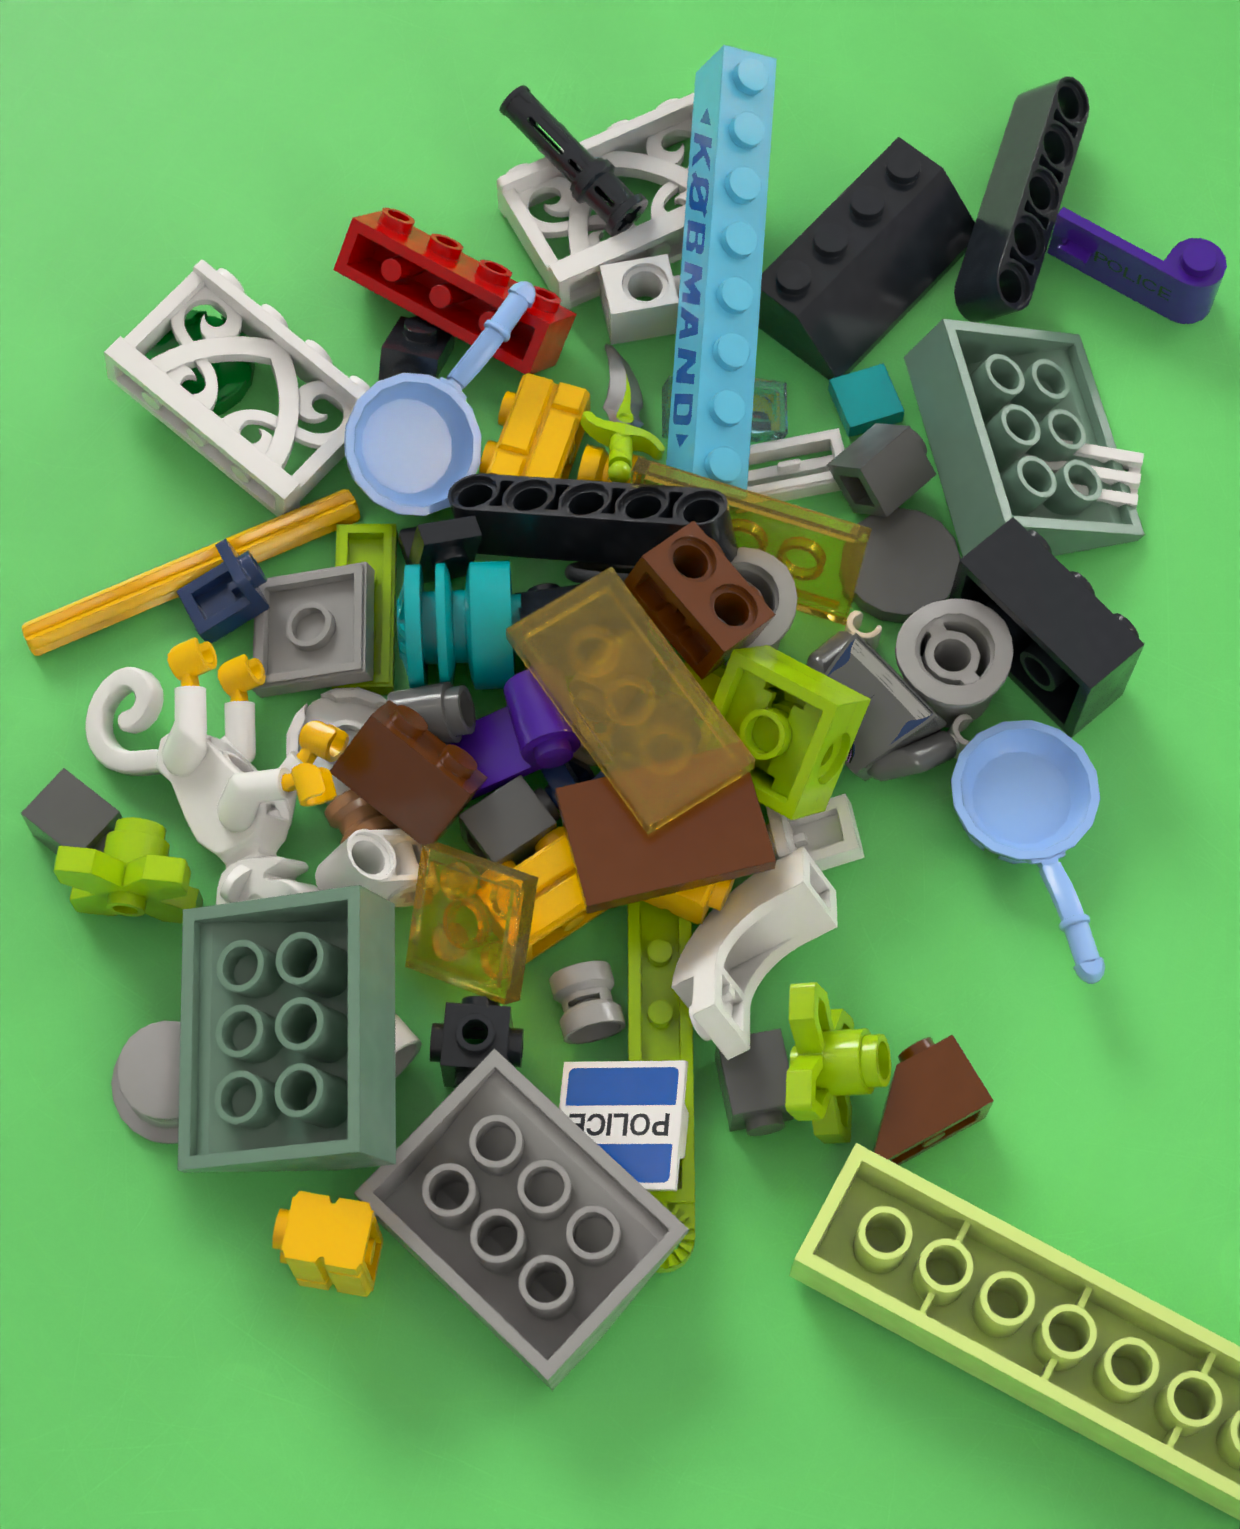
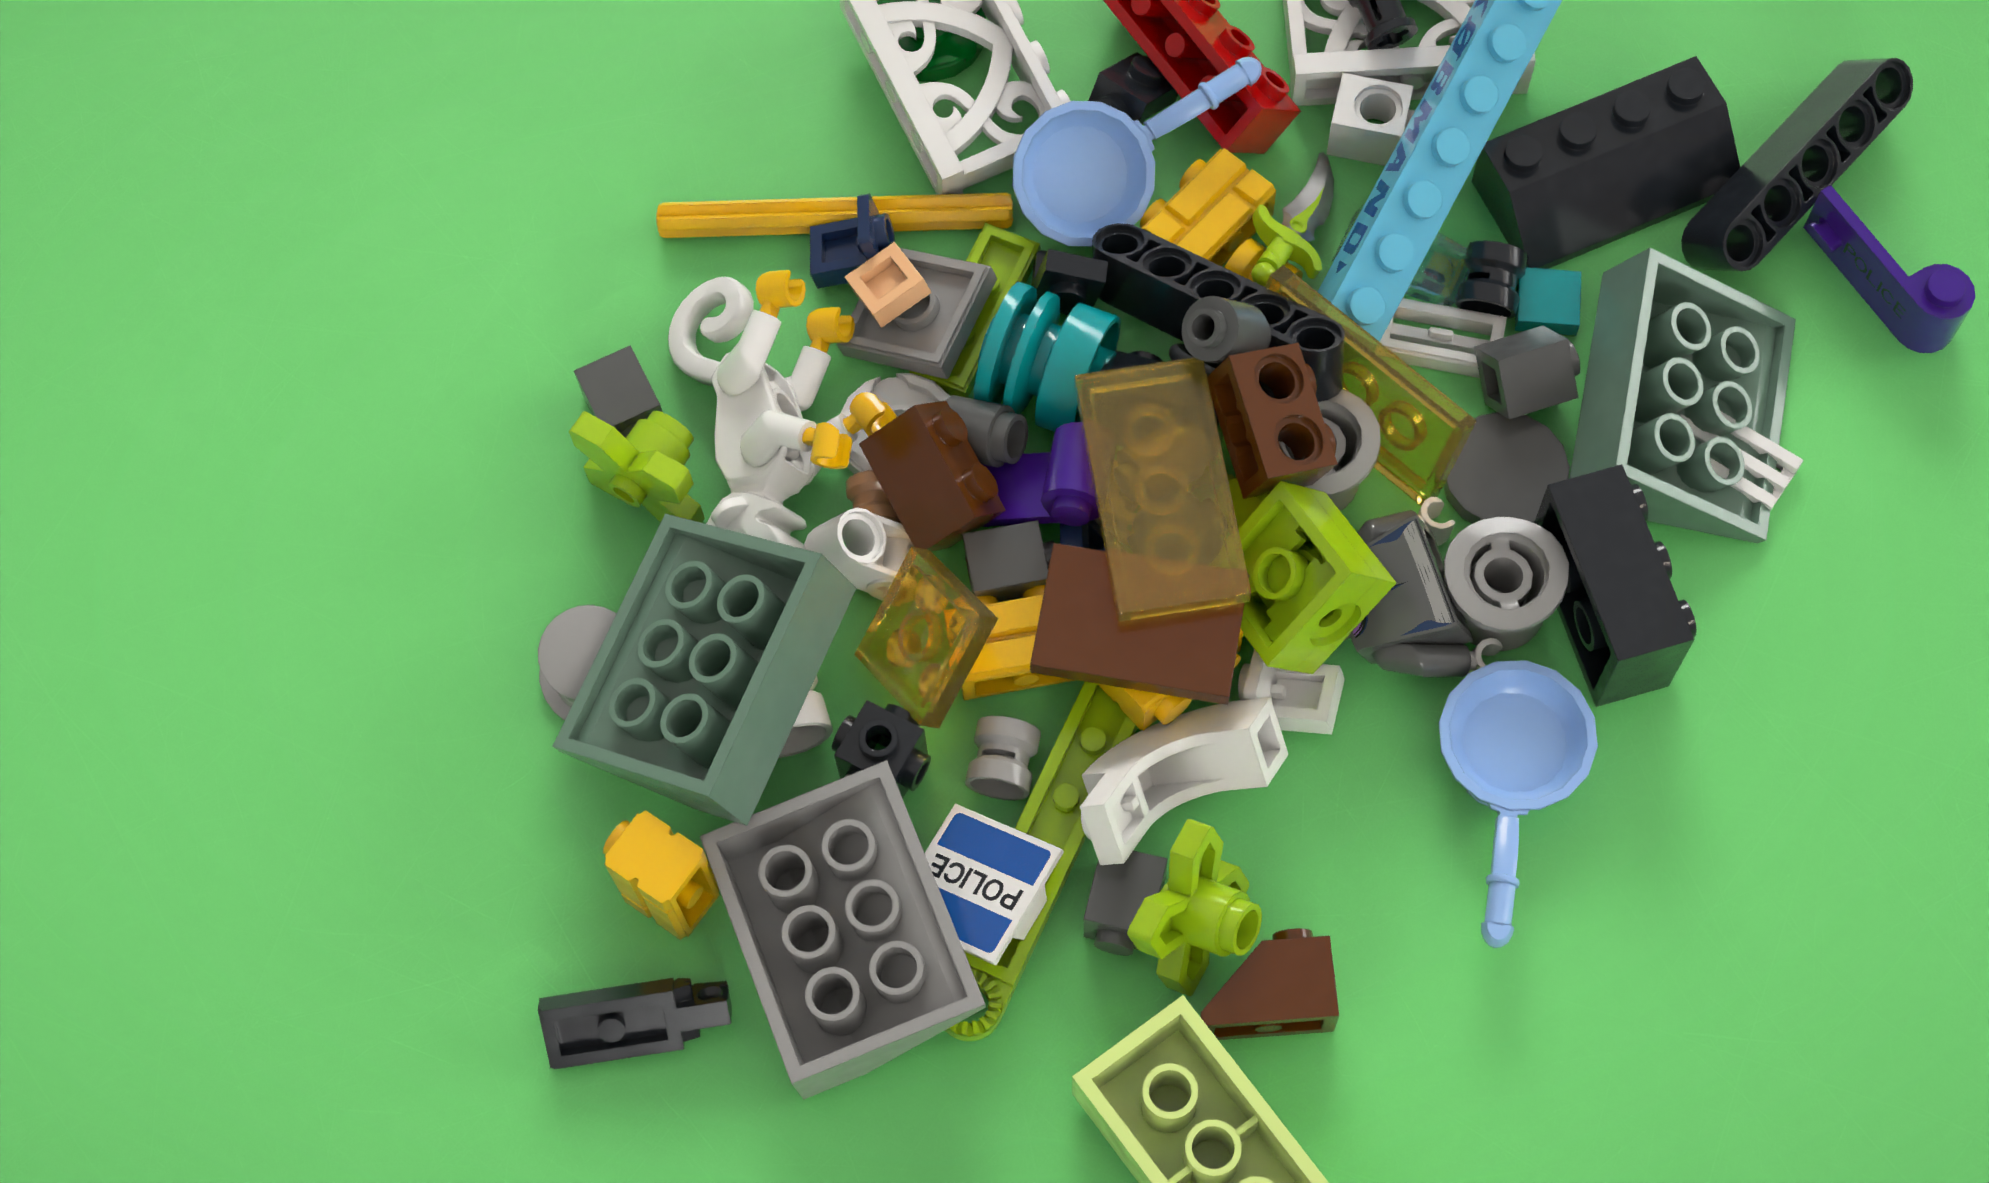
camera: 30 degrees right, 0 degrees up
(280, 615) = (888, 284): none -> light nougat plate
(361, 1391) = (630, 1020): none -> black hinge
(621, 535) = (1222, 328): none -> dark grey brick
(812, 398) = (1492, 278): none -> black wheel

